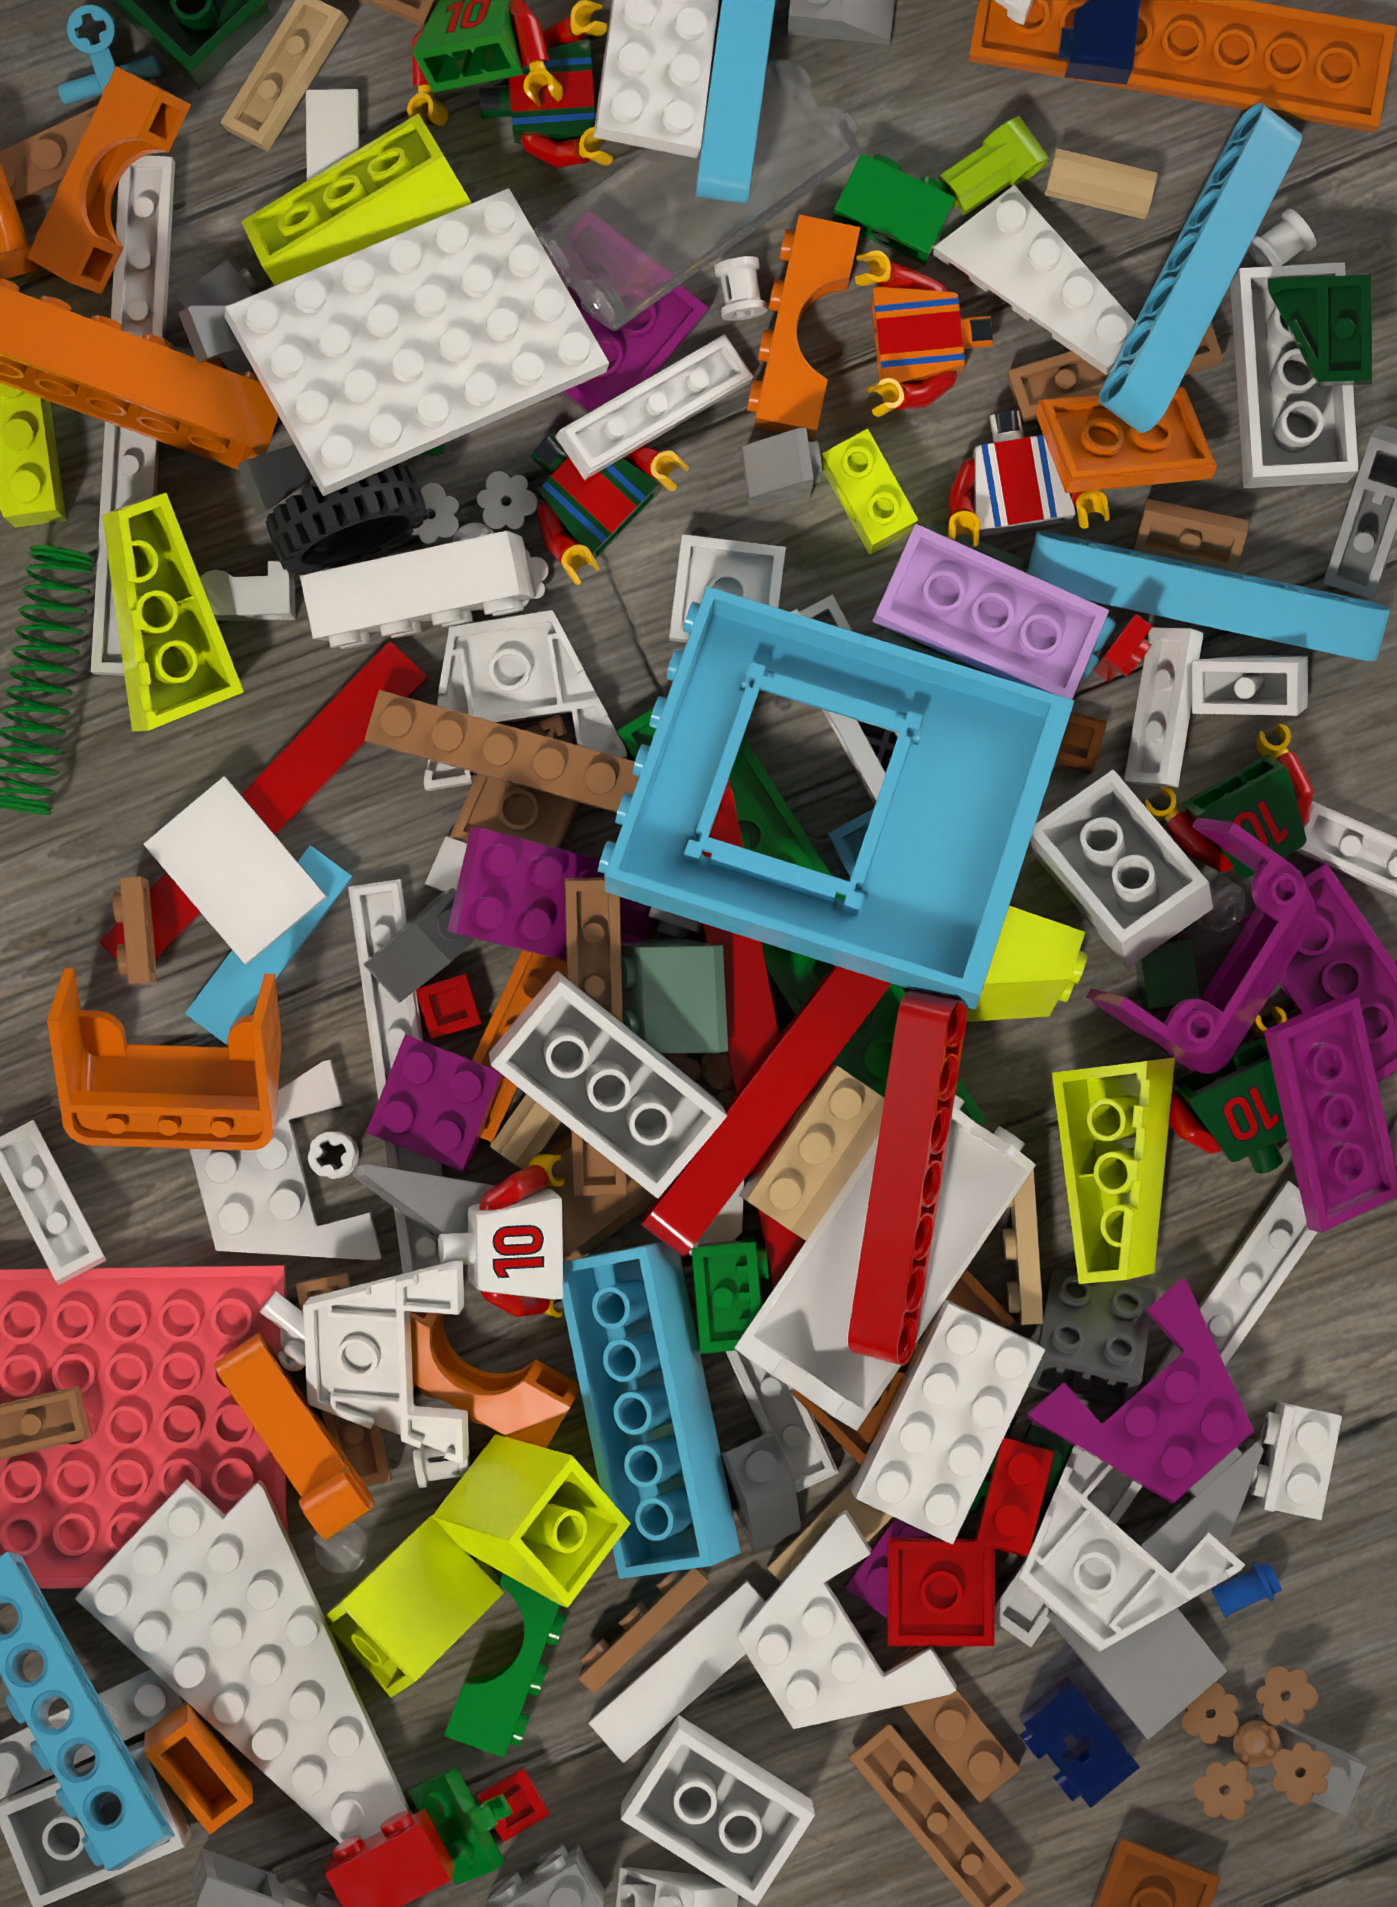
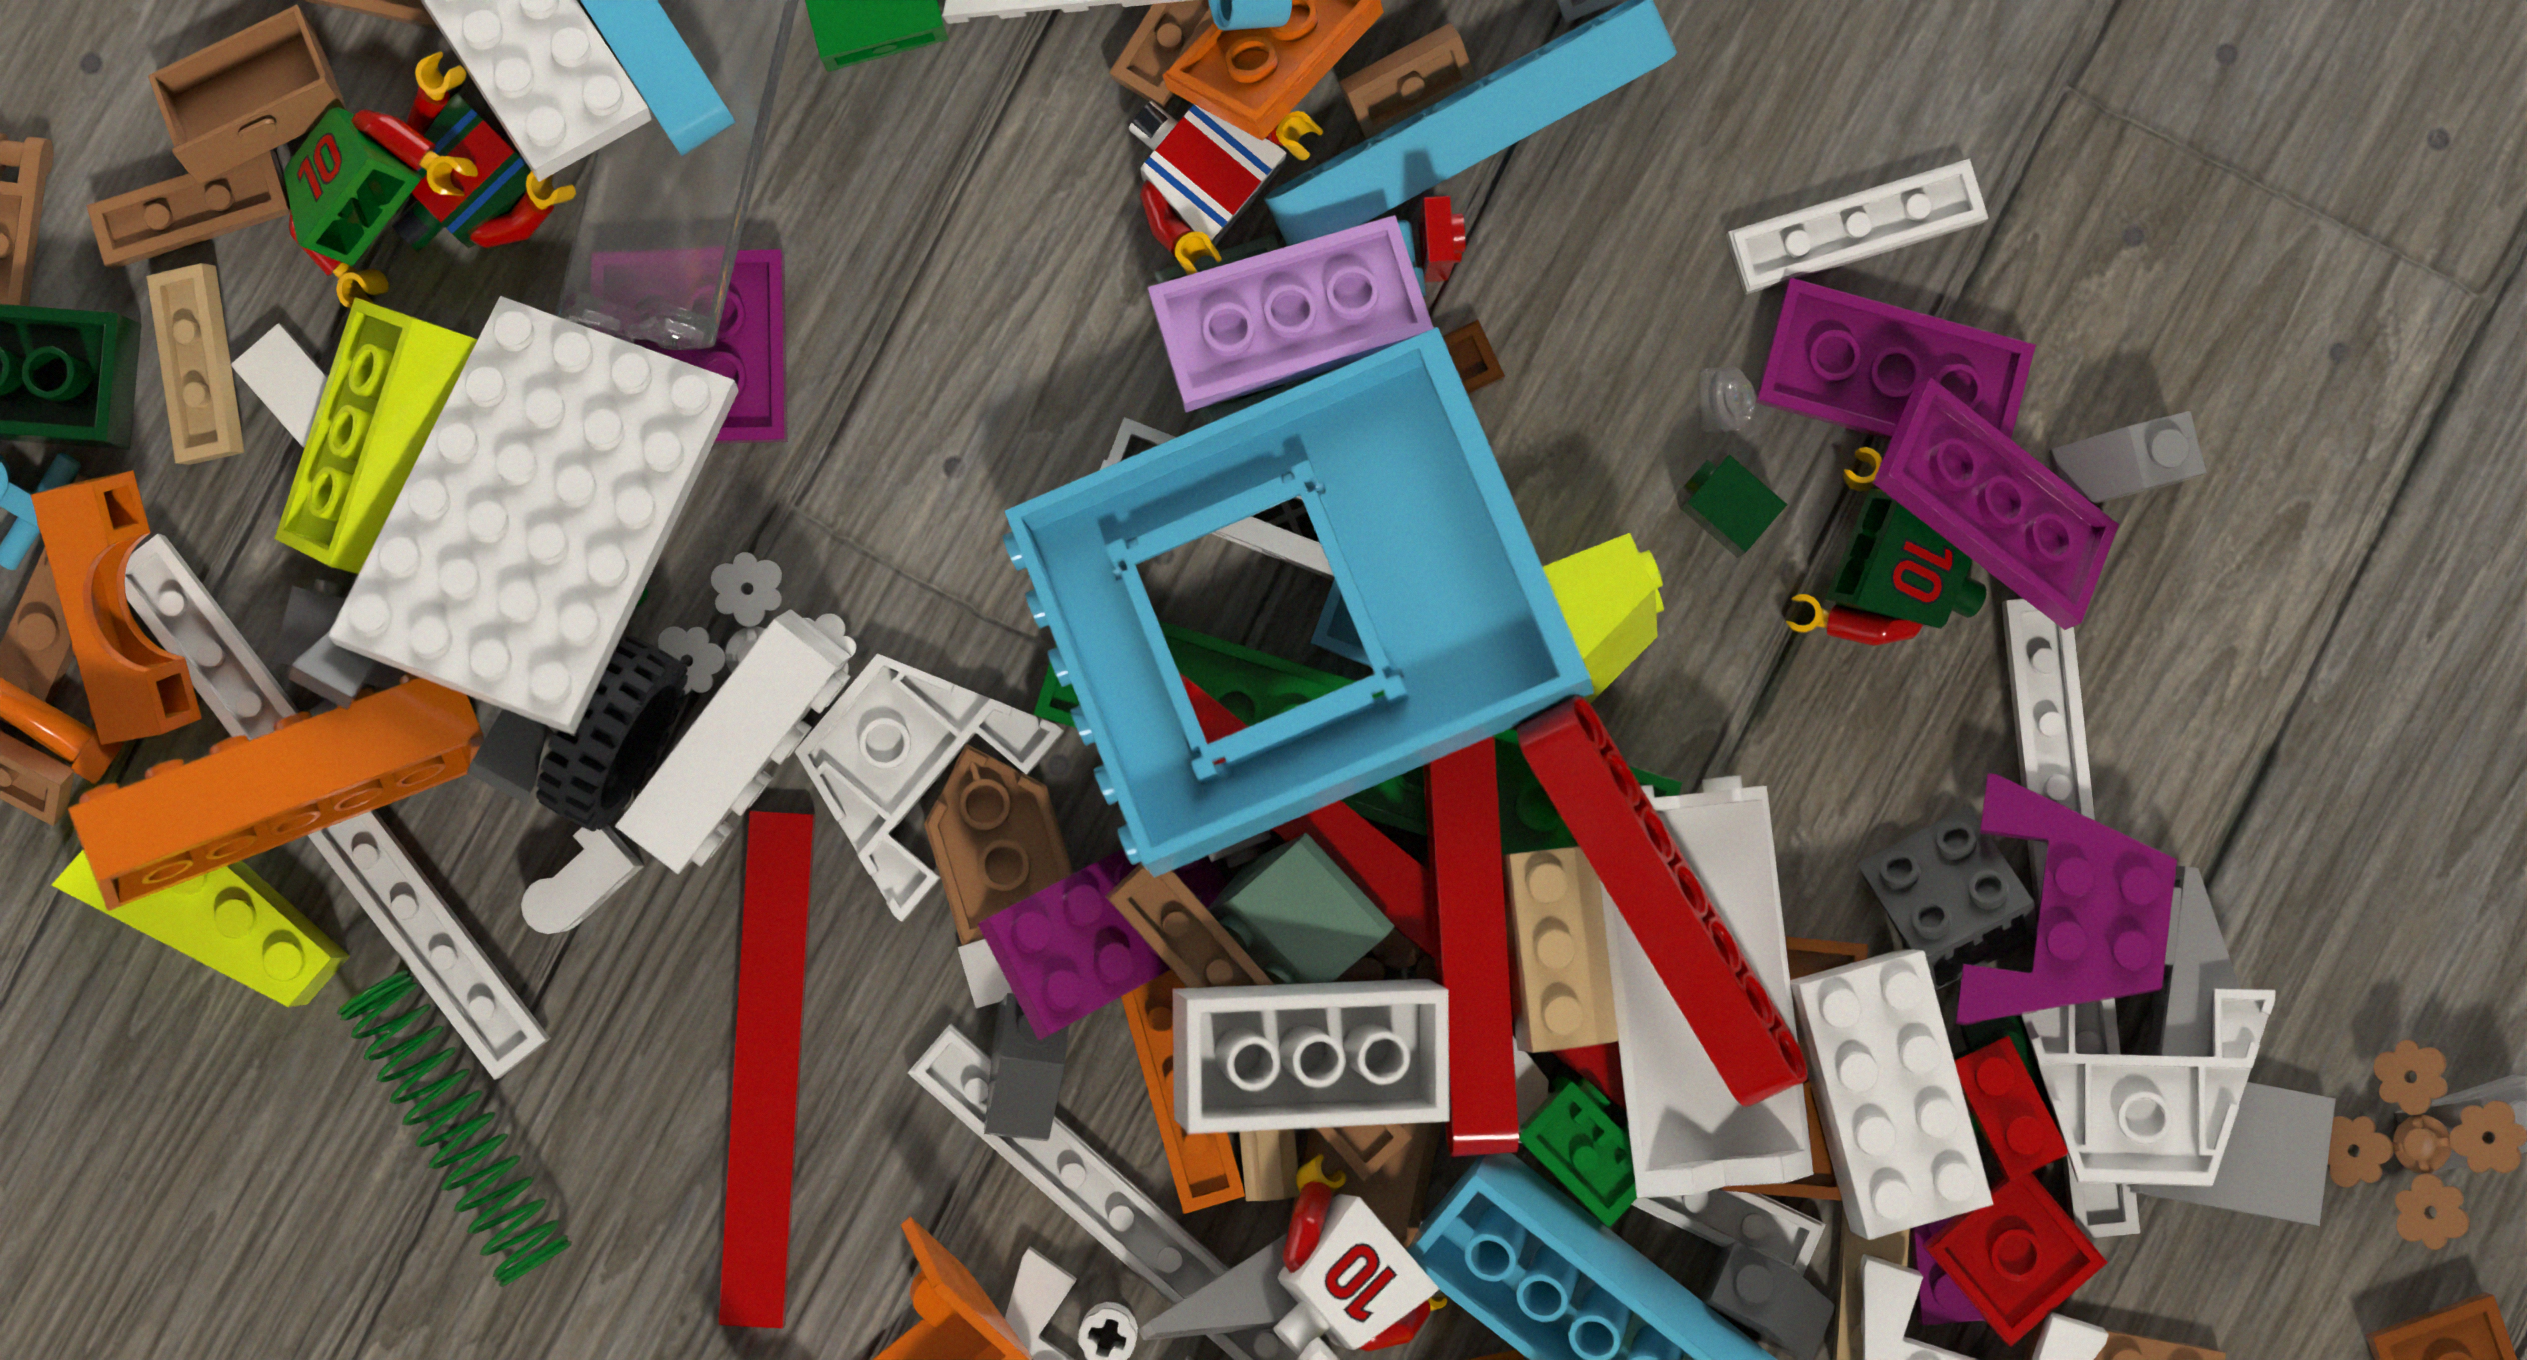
camera: 45 degrees left, 0 degrees up
(133, 909) = (765, 1306): medium nougat plate -> none
(164, 619) = (522, 973): neon yellow wedge -> none
(235, 870) = (789, 1149): white tile -> none
(236, 986) = (879, 1187): medium azure tile -> none
(435, 1103) = (1161, 1206): magenta plate -> none
(448, 1006) = (1096, 1104): red plate -> none
(500, 751) = (943, 826): medium nougat plate -> none
(587, 515) = (825, 512): torso -> none
(654, 407) = (810, 384): white tile -> none
(728, 566) = (1005, 475): white plate -> none
(740, 288) = (796, 206): white bush -> none
(781, 468) = (977, 340): light grey slope -> none
(818, 265) = (850, 122): orange arch -> none
(868, 491) = (1076, 293): neon yellow brick -> none
(916, 334) = (996, 110): torso -> none
(1022, 1246) = (1816, 871): tan plate -> none
(1105, 1758) = (2294, 1294): clear blue brick -> none
(1114, 1163) = (1835, 721): neon yellow wedge -> none
(1121, 869) = (1610, 444): white brick -> none
(1163, 708) = (1520, 262): white plate -> none
(1210, 1029) = (1820, 520): magenta windscreen -> none
(1247, 1589) = (2291, 1006): blue pin -> none
(1250, 685) = (1582, 173): white slope -> none
(1264, 798) = (1684, 296): torso -> none
(1296, 1460) = (2232, 850): white bracket -> none

